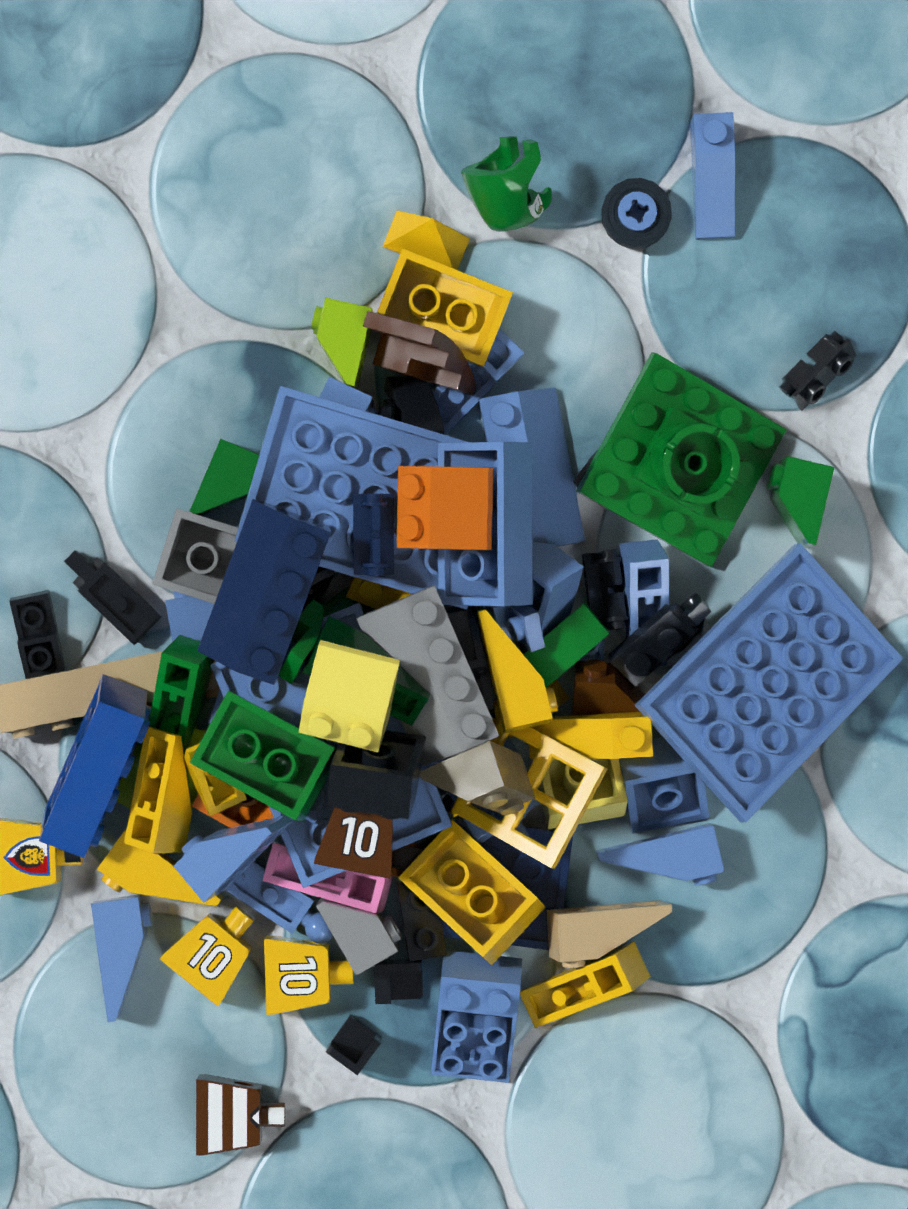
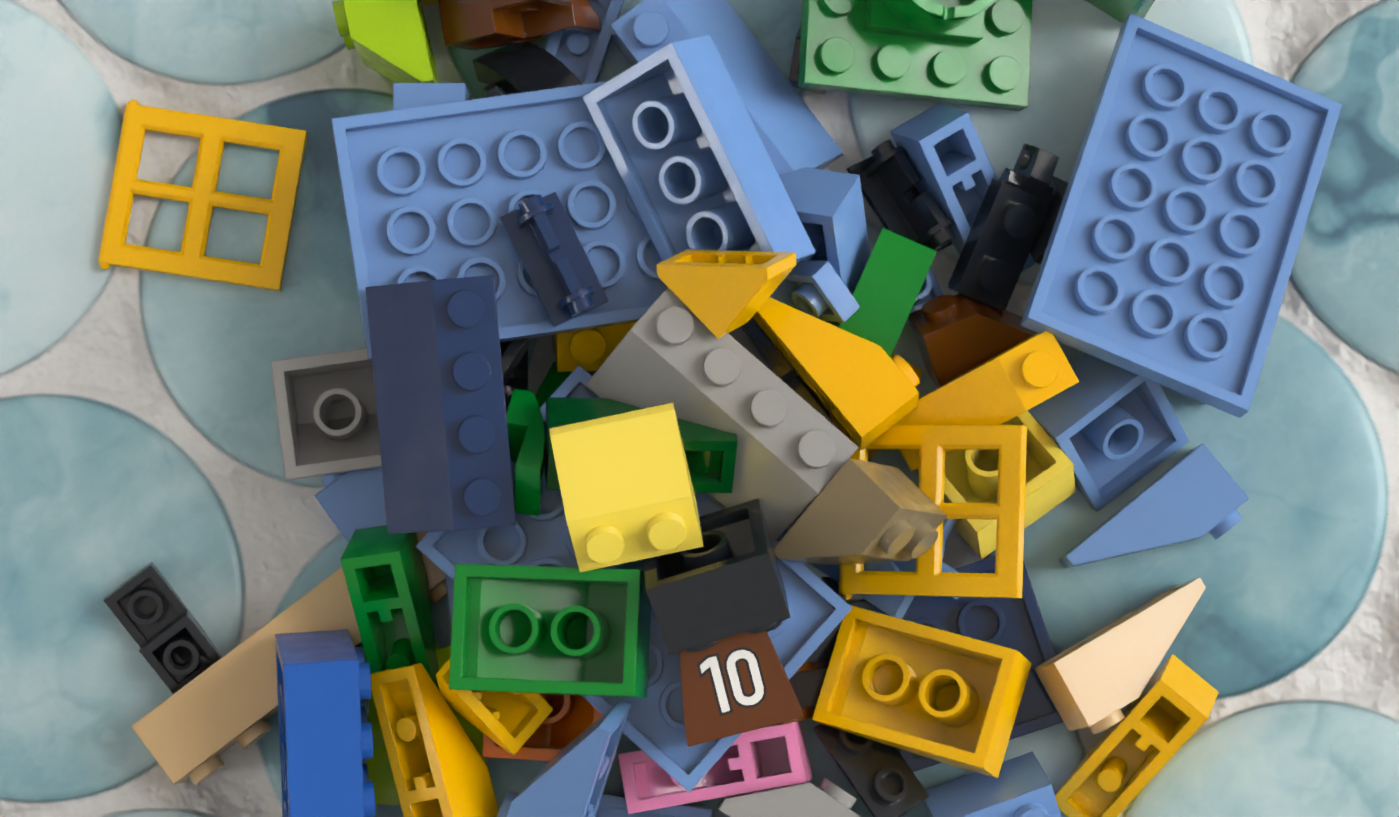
camera: 25 degrees left, 5 degrees down
(113, 597) = (243, 528): black hinge -> none
(182, 380) = (203, 197): none -> yellow window
(225, 479) = (320, 294): green slope -> none
(444, 507) = (634, 172): orange slope -> none
(466, 601) = (725, 285): none -> yellow slope

